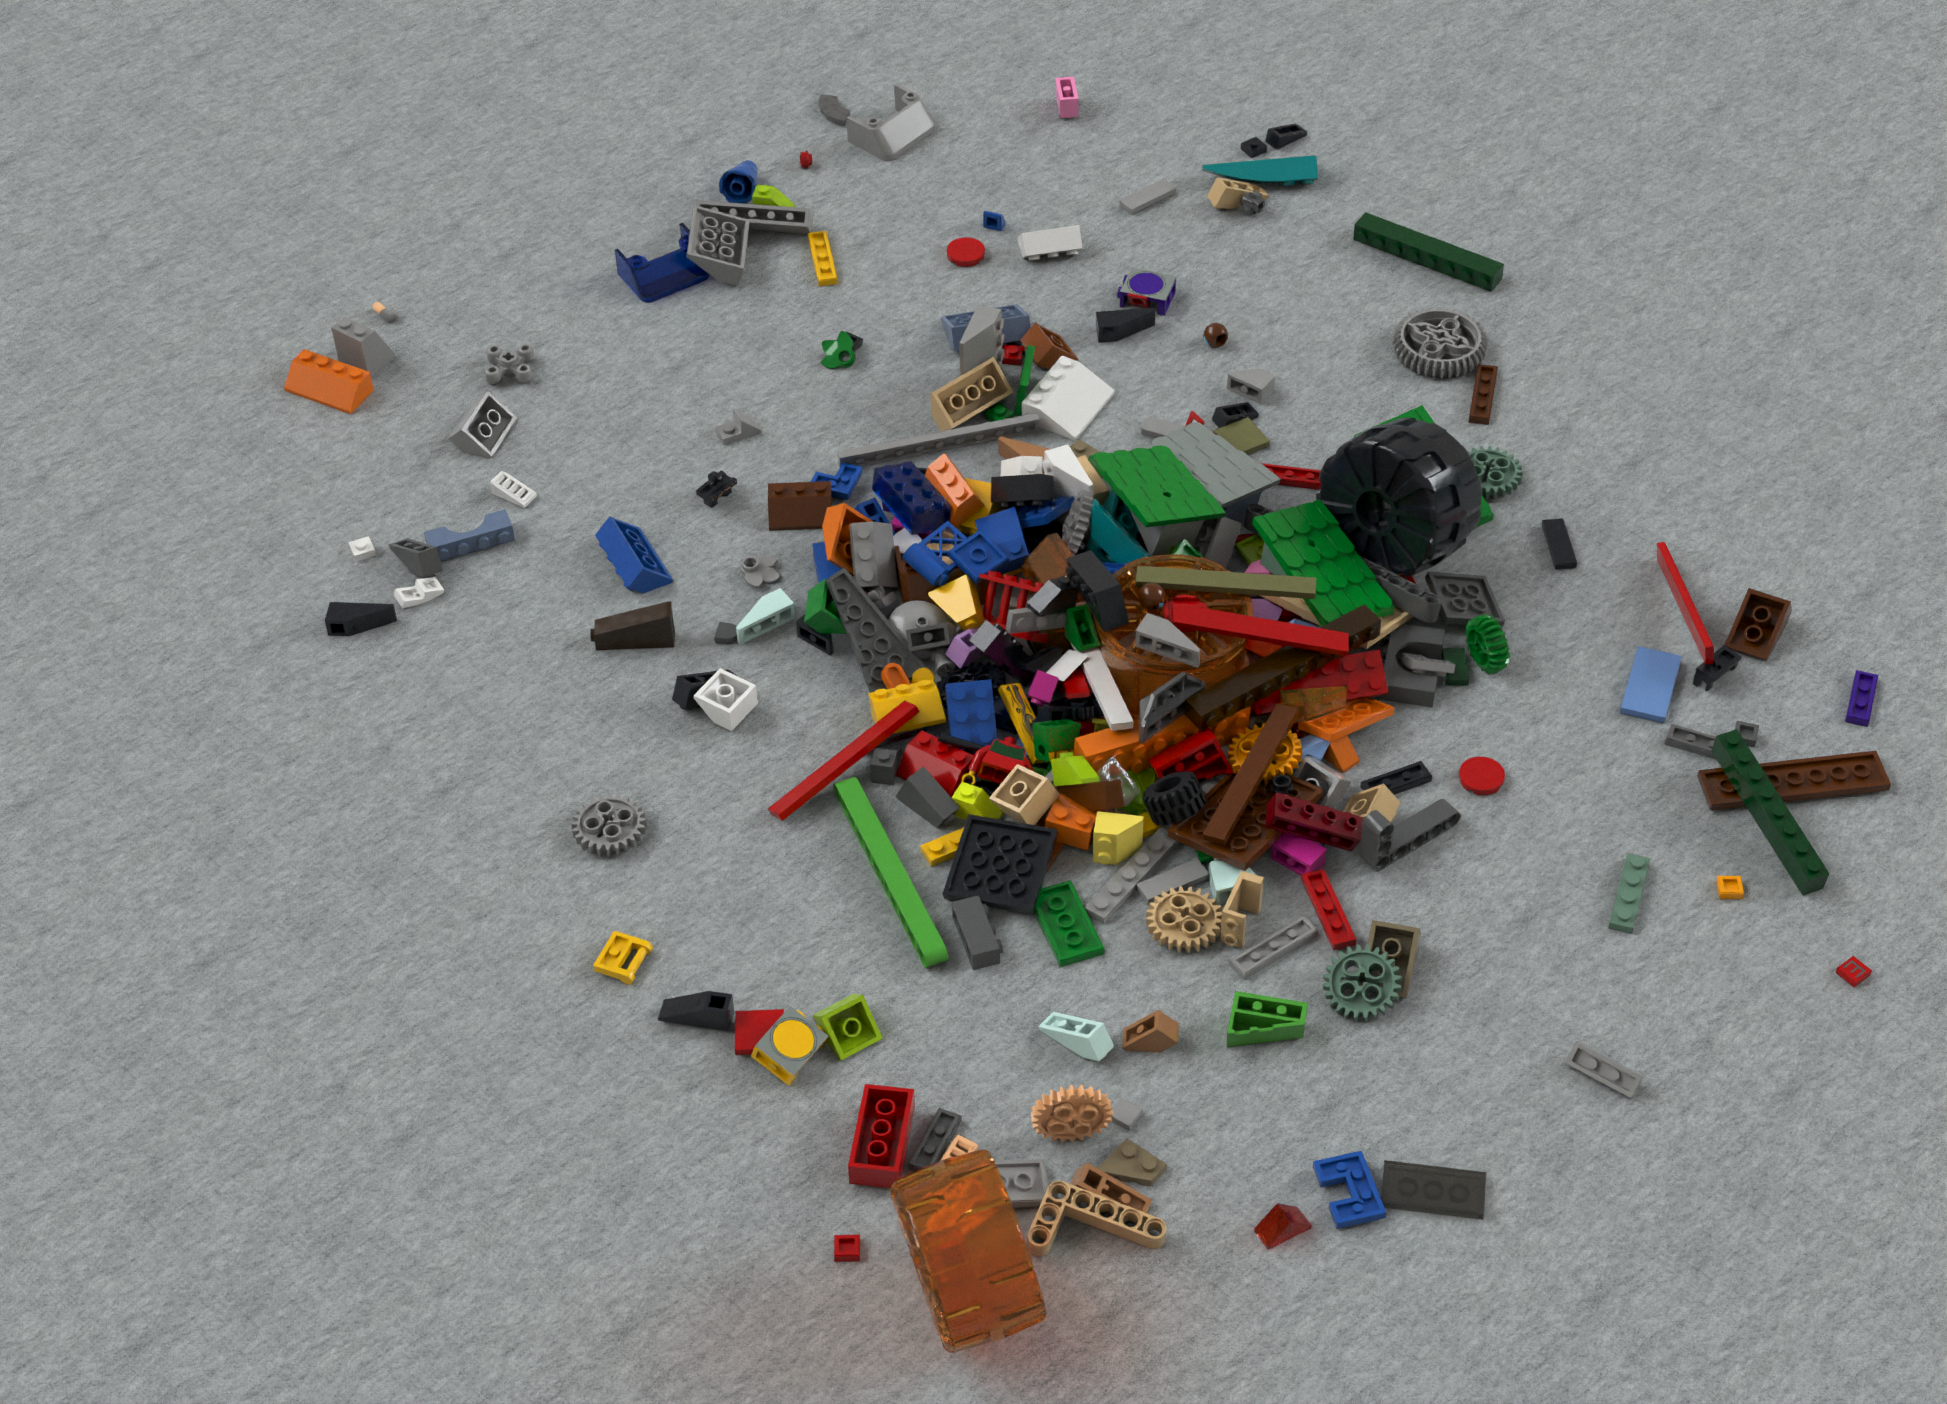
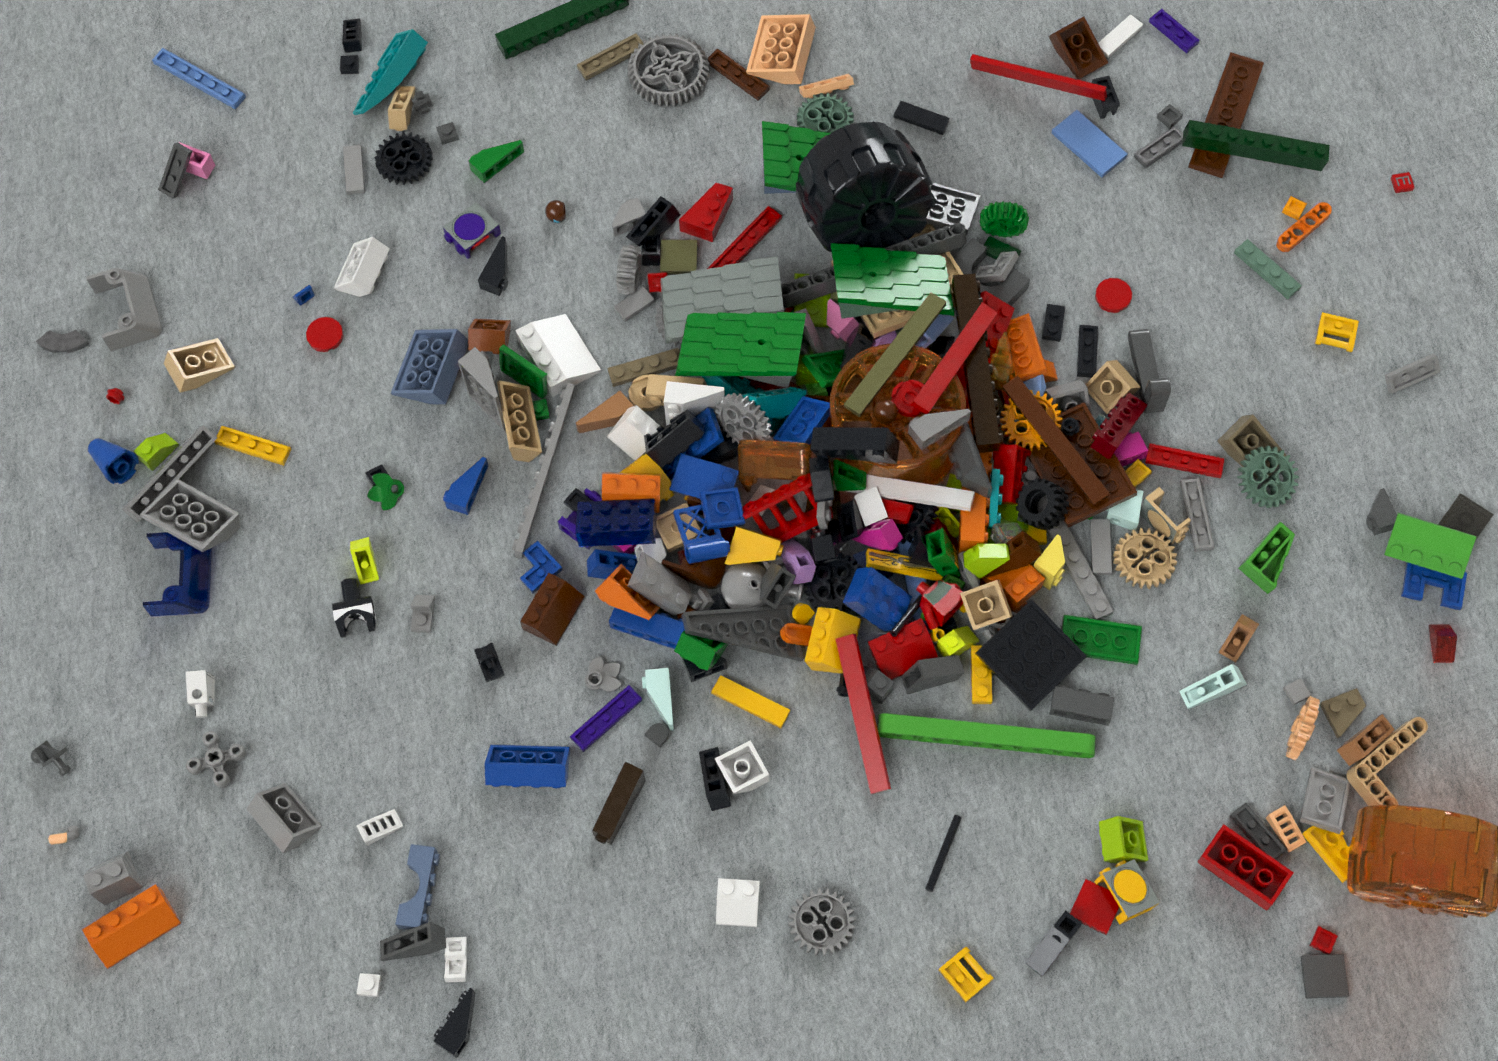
camera: 60 degrees left, 20 degrees up
(448, 267) = (46, 754): none -> dark grey piece
(564, 324) = (199, 684): none -> white torso
(591, 755) = (737, 902): none -> white slope
(708, 384) = (353, 607): none -> black connector
(717, 591) = (606, 718): none -> dark purple tile
(741, 891) = (943, 853): none -> black bar
(760, 368) = (364, 560): none -> neon yellow slope
(805, 684) = (750, 701): none -> yellow tile
(805, 1263) = (1324, 976): none -> dark grey tile
(872, 189) = (197, 364): none -> tan slope
(882, 400) = (465, 488): none -> blue slope
(1044, 88) = (175, 170): none -> dark grey plate
(1148, 751) = (996, 498): none -> teal plate
(1156, 70) = (199, 78): none -> medium blue tile
(1184, 218) = (403, 158): none -> black gear
(1188, 396) = (628, 269): none -> light grey gear
(1234, 273) = (494, 159): none -> green slope
(1238, 235) = (447, 133): none -> dark grey plate
(1263, 401) = (654, 222): none -> black slope
(1276, 875) = (1138, 472): none -> yellow tile
(1305, 434) = (708, 213): none -> red wedge
(1384, 1154) = (1430, 545): none -> bright green slope
(1399, 1105) = (1382, 514): none -> dark grey slope
(1406, 741) = (1053, 322): none -> black plate
(1413, 298) = (609, 57): none -> dark tan plate
(1527, 458) = (826, 86): none -> light nougat plate
(1539, 408) = (782, 48): none -> light nougat slope
(1607, 978) = (1339, 327): none -> yellow plate
(1711, 907) = (1304, 227): none -> orange beam
(1809, 656) = (1120, 35): none -> white tile

